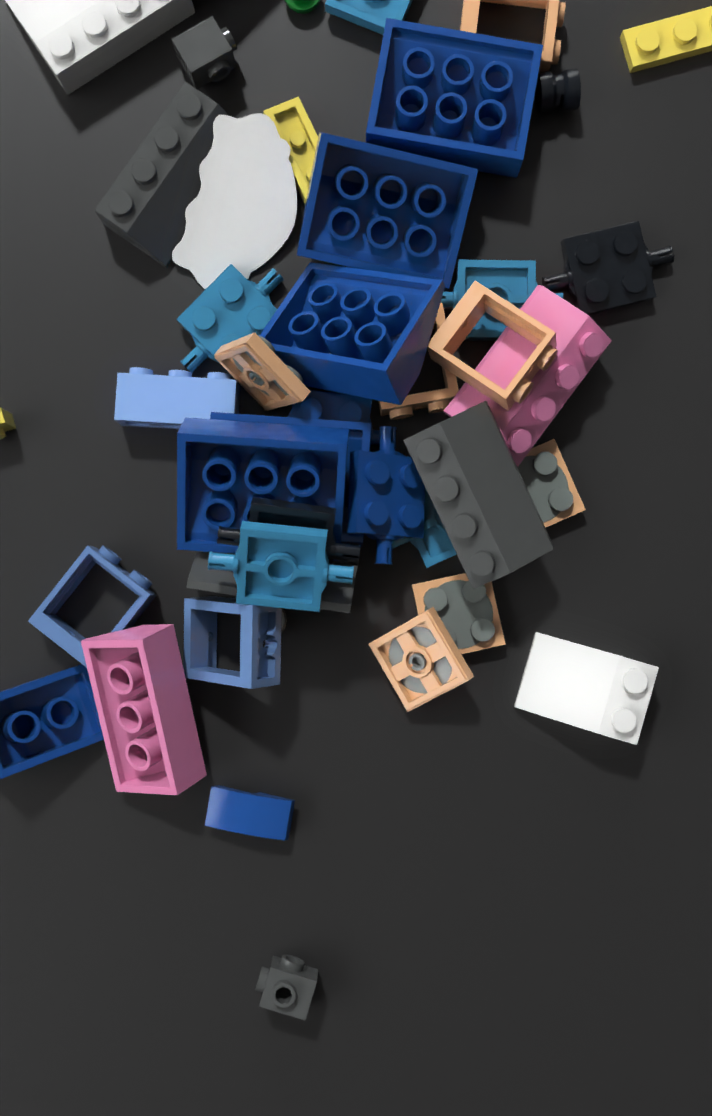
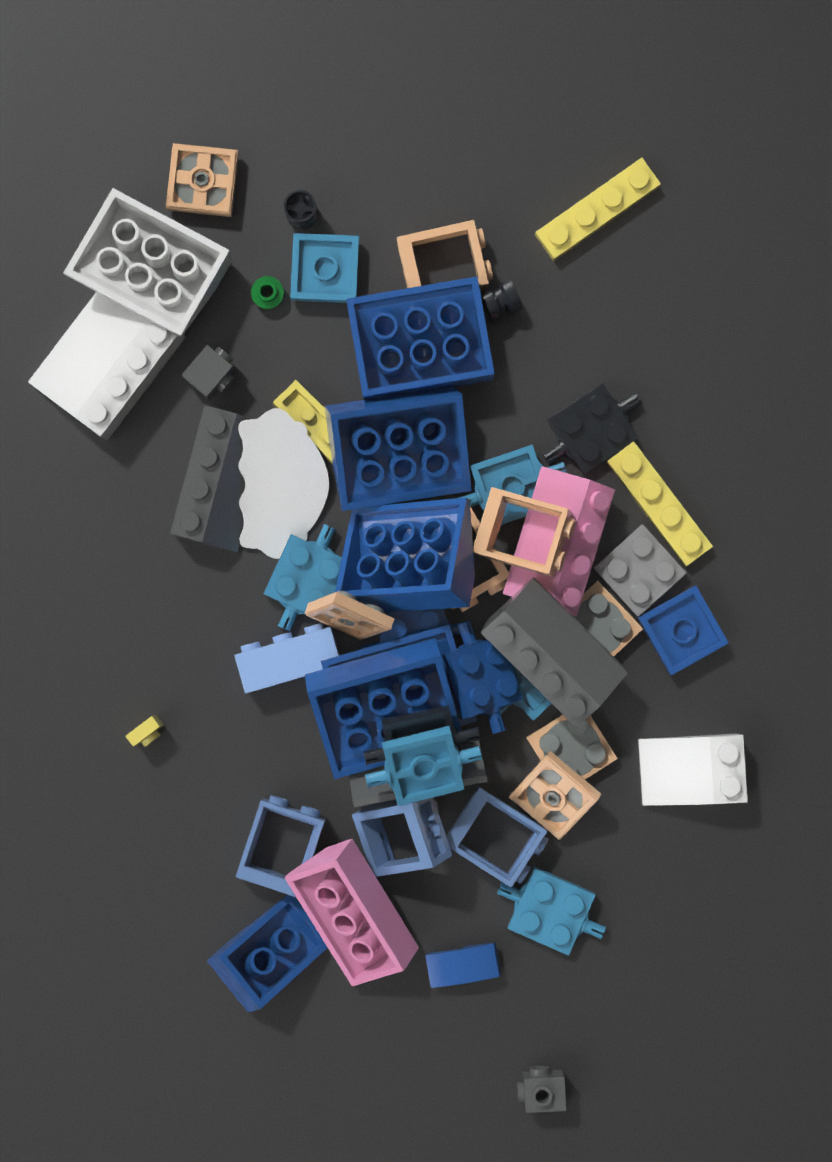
camera: 15 degrees left, 0 degrees up
(352, 726) = (519, 868): none -> medium blue window
(370, 787) = (551, 910): none -> dark azure plate
(604, 444) = (639, 570): none -> light grey plate
(629, 527) = (682, 630): none -> blue plate
(652, 379) = (659, 504): none -> light yellow plate

